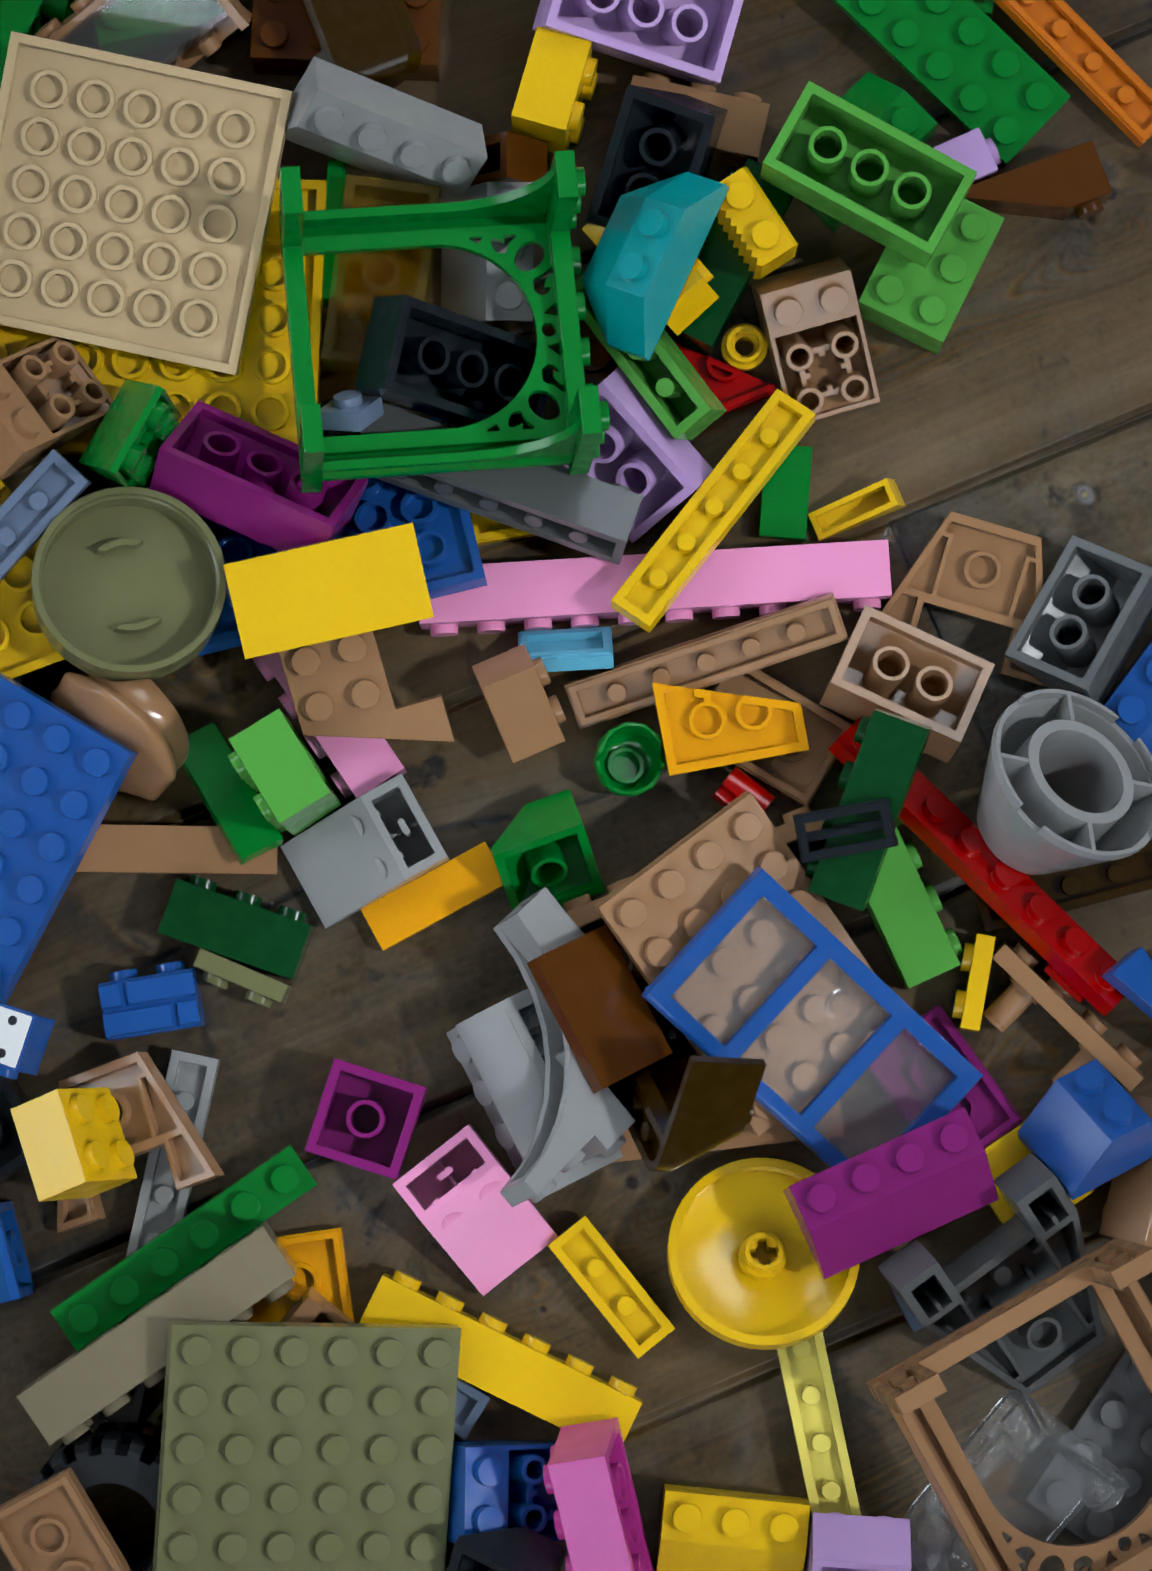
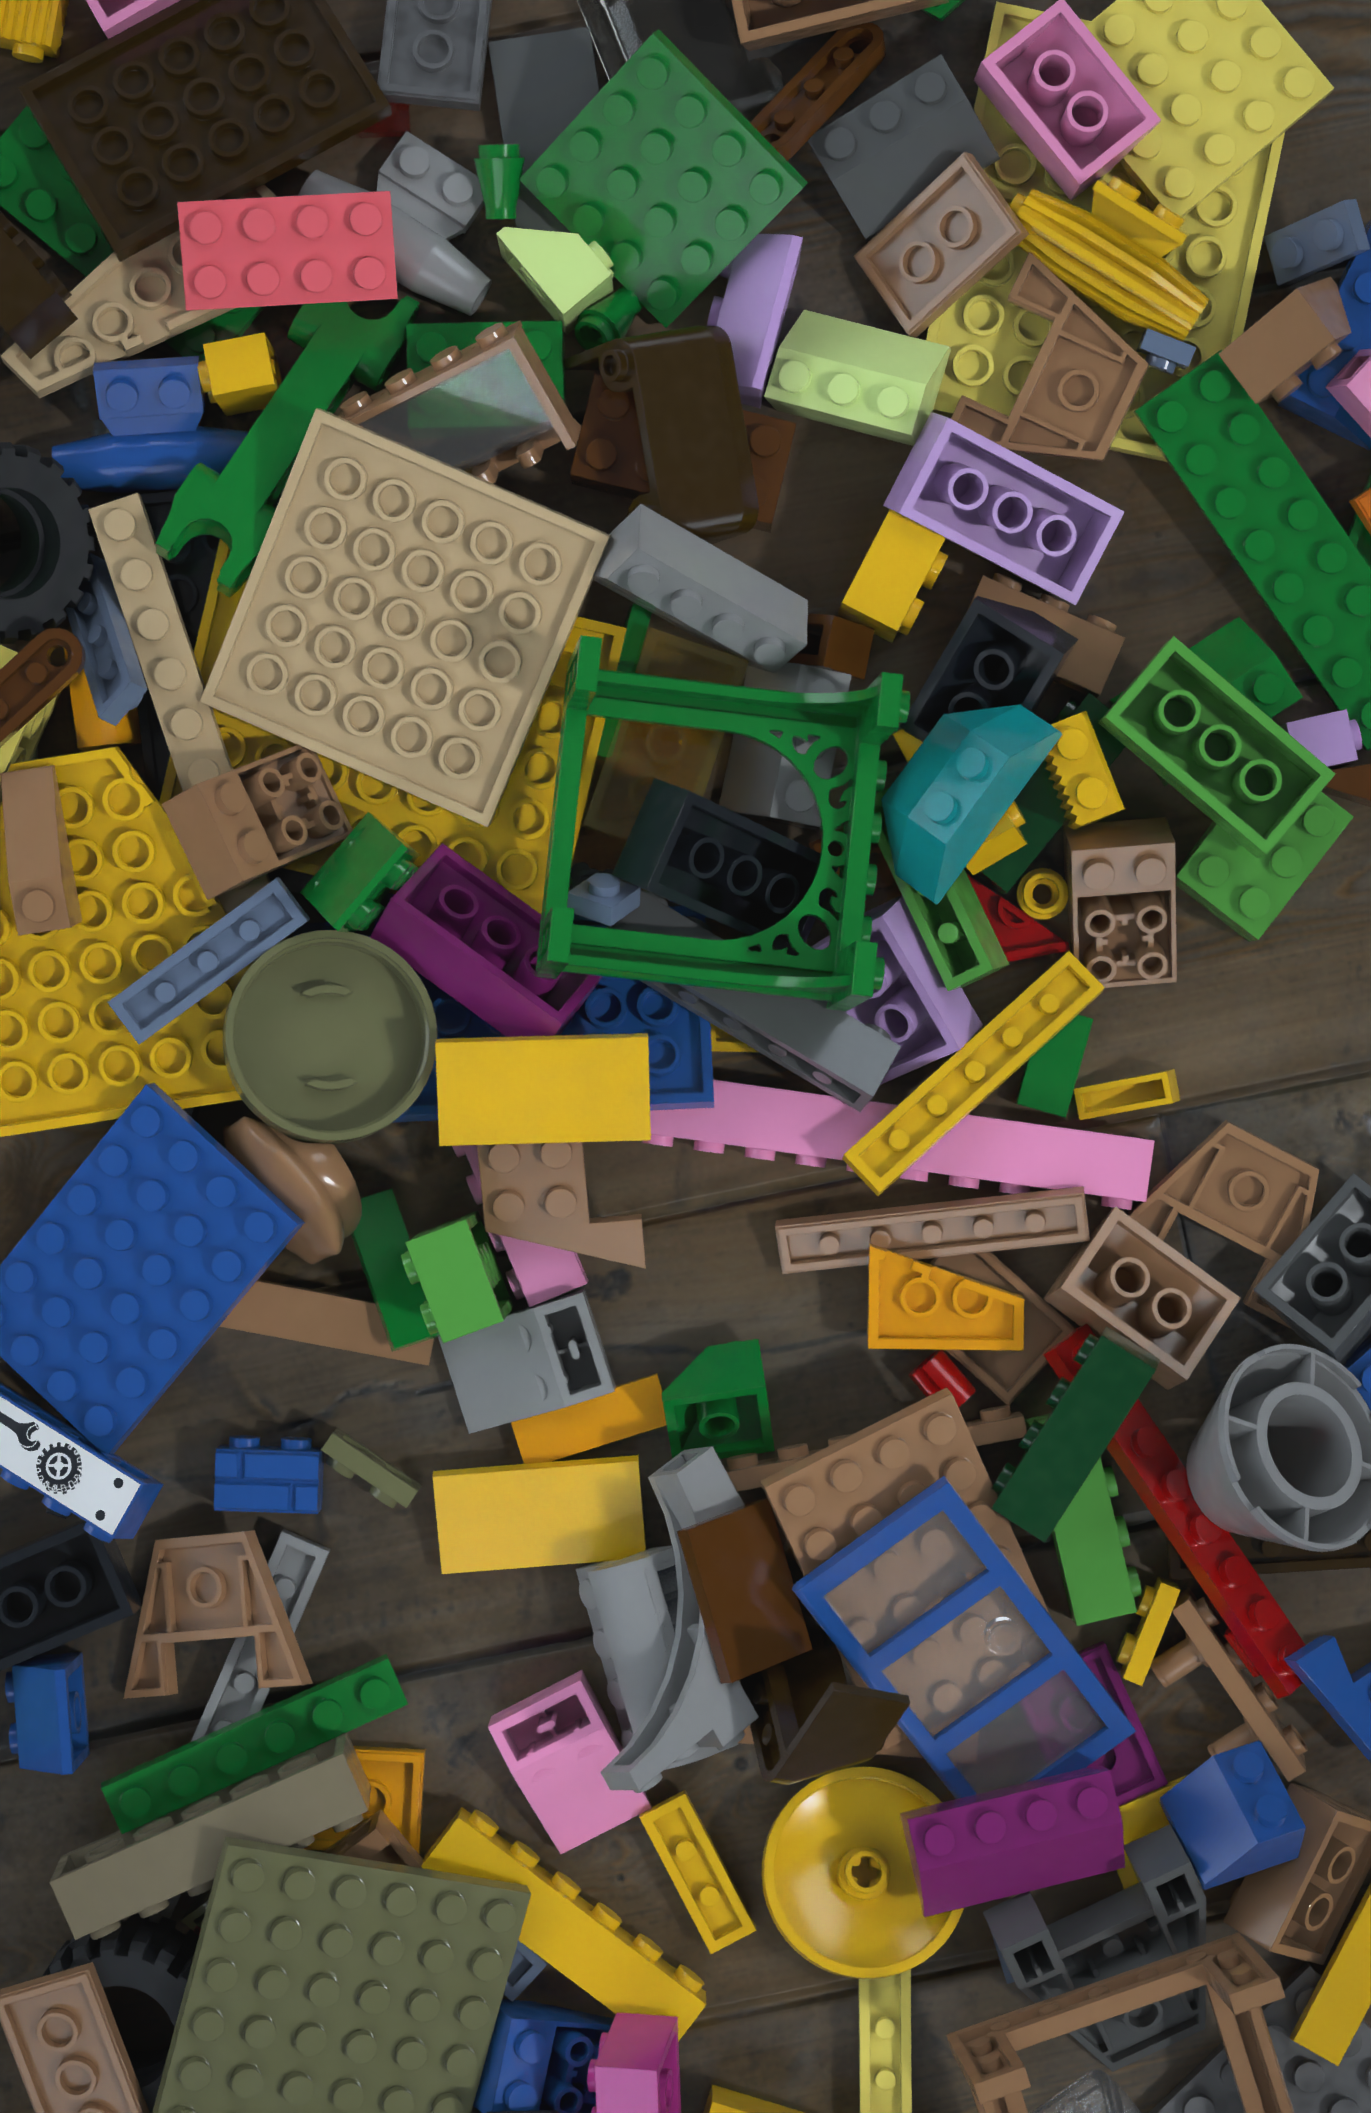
camera: 10 degrees right, 5 degrees up
(74, 1143) = (159, 1620): yellow brick -> none
(237, 927) = (375, 1415): dark green brick -> none
(366, 1118) = (474, 1648): magenta brick -> none
(402, 988) = (539, 1514): none -> yellow tile
(519, 703) = (723, 1238): medium nougat brick -> none
(570, 648) = (784, 1187): medium azure tile -> none
(629, 759) = (828, 1319): green hair -> none
(885, 822) = (1044, 1435): black tile -> none

